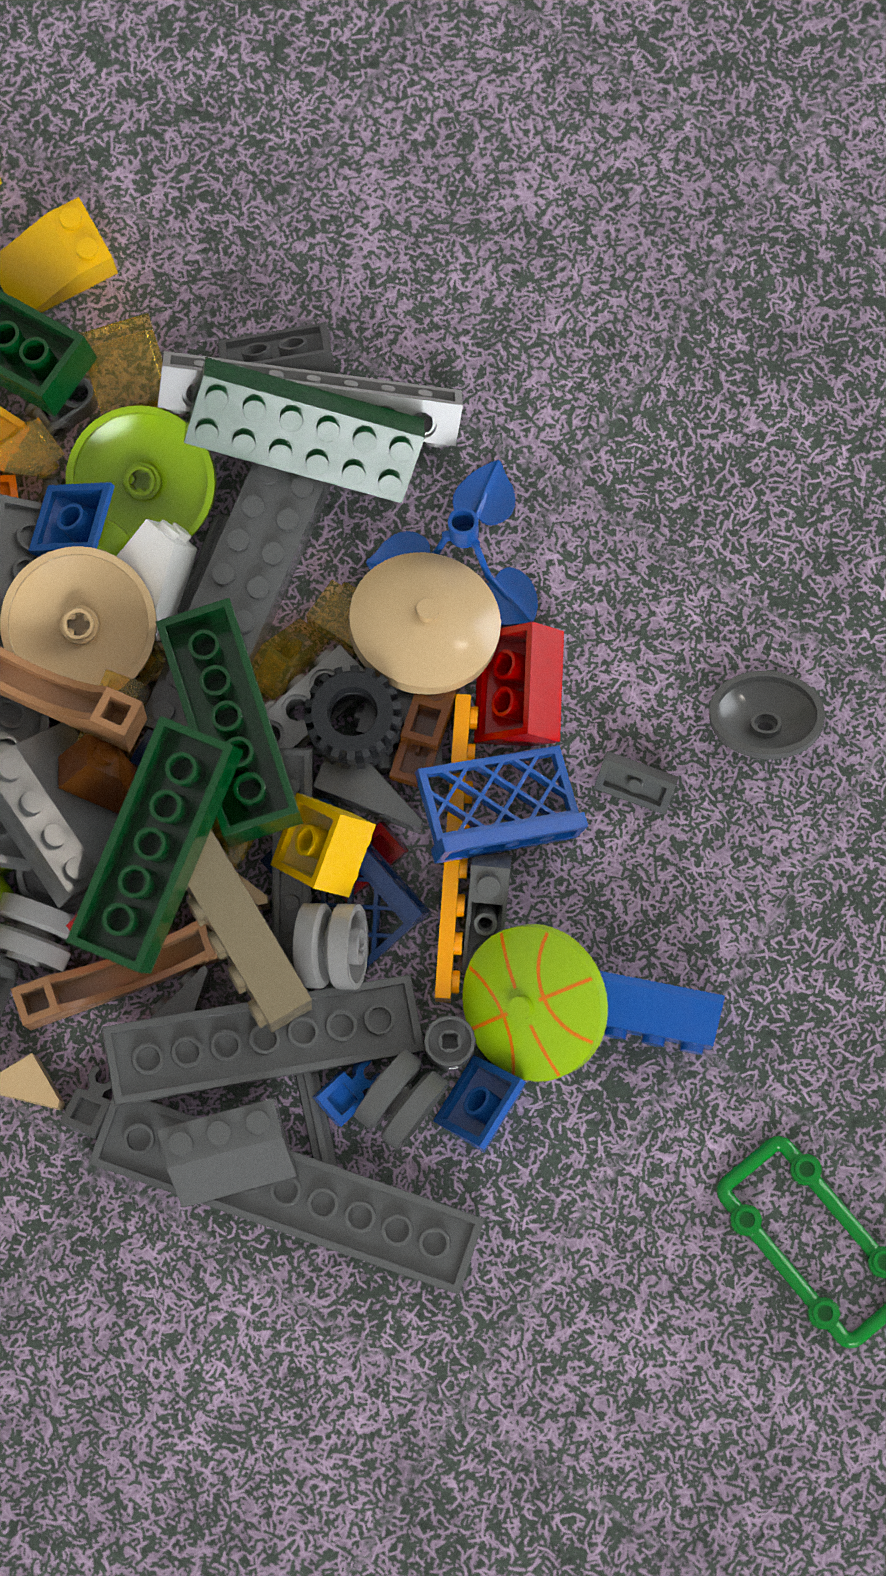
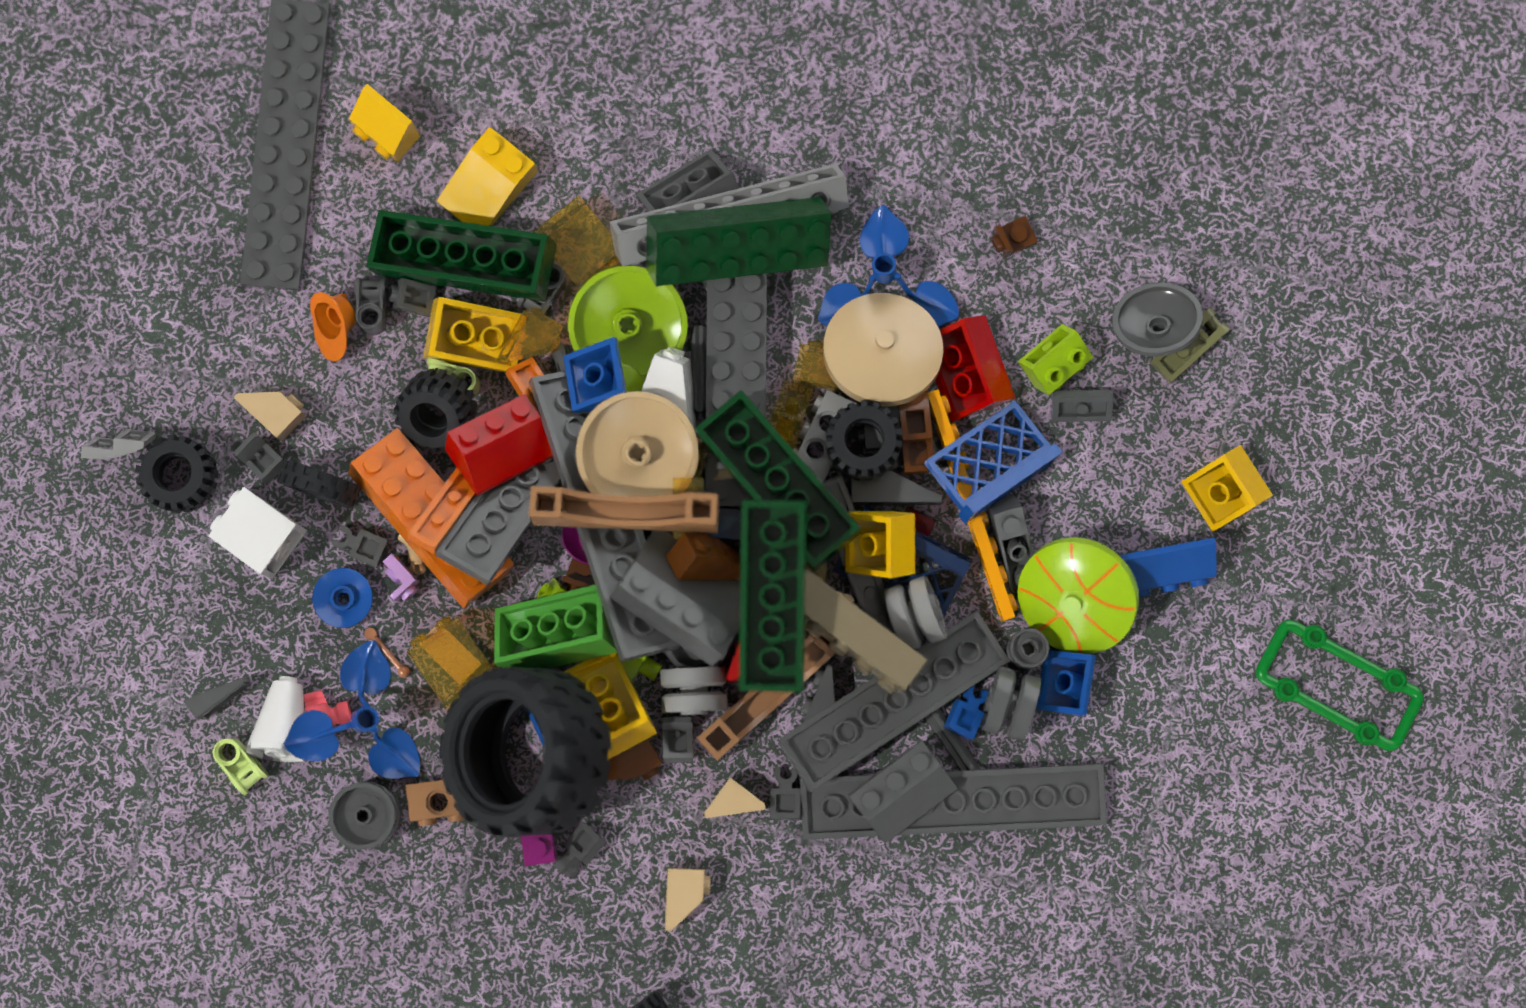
camera: 25 degrees left, 5 degrees up
(626, 715) = (1055, 359): none -> lime brick
(636, 555) = (1013, 237): none -> reddish brown bracket
(771, 948) = (1226, 488): none -> yellow slope
(773, 775) = (1175, 364): none -> olive plate

